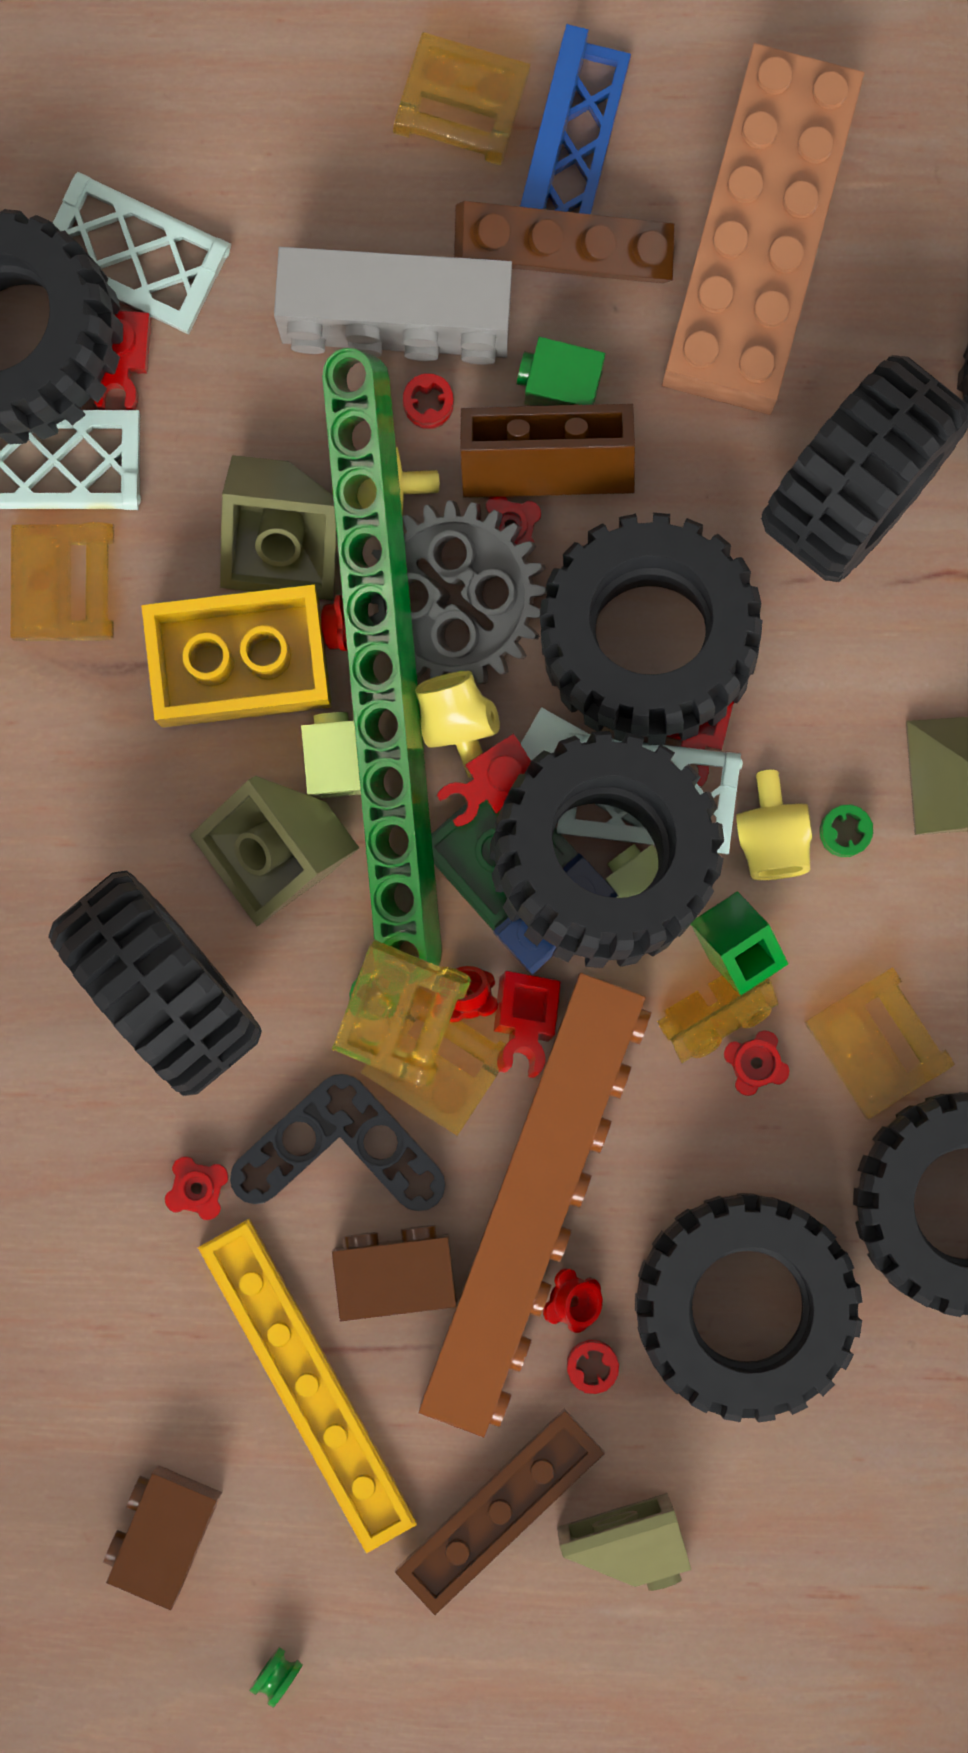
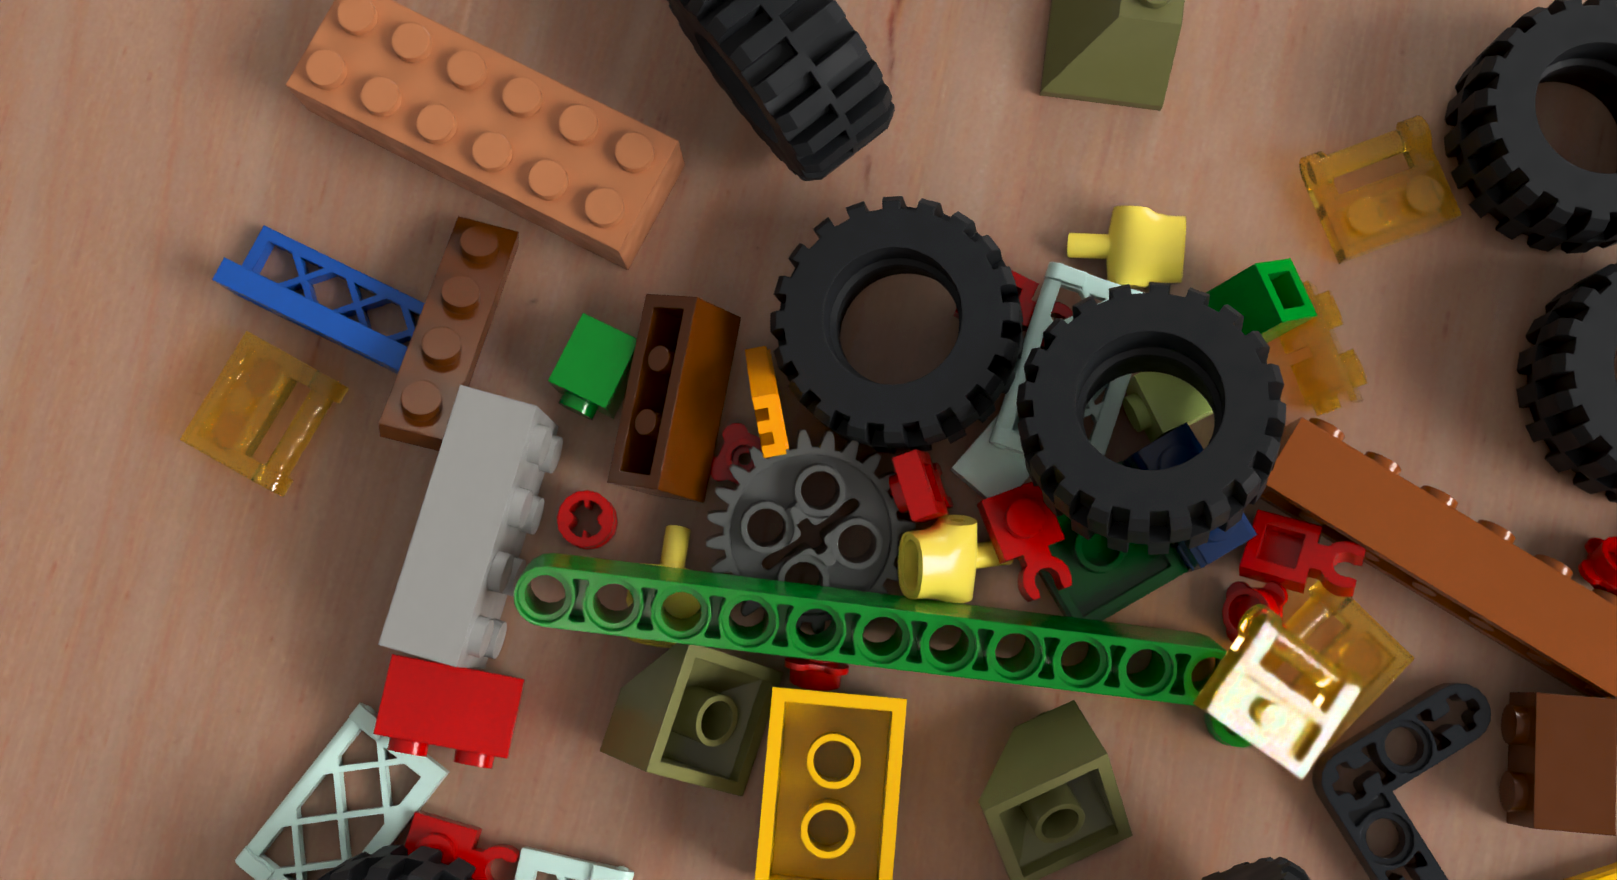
camera: 75 degrees left, 5 degrees down
(240, 321) = (448, 709): none -> red brick
(331, 756) = (963, 709): yellowish green brick -> none
(513, 678) = (919, 487): none -> red plate
(559, 528) = (766, 401): none -> light orange tile
(771, 1070) = (1396, 311): red plate -> none
(863, 827) = (1142, 158): green bush -> none

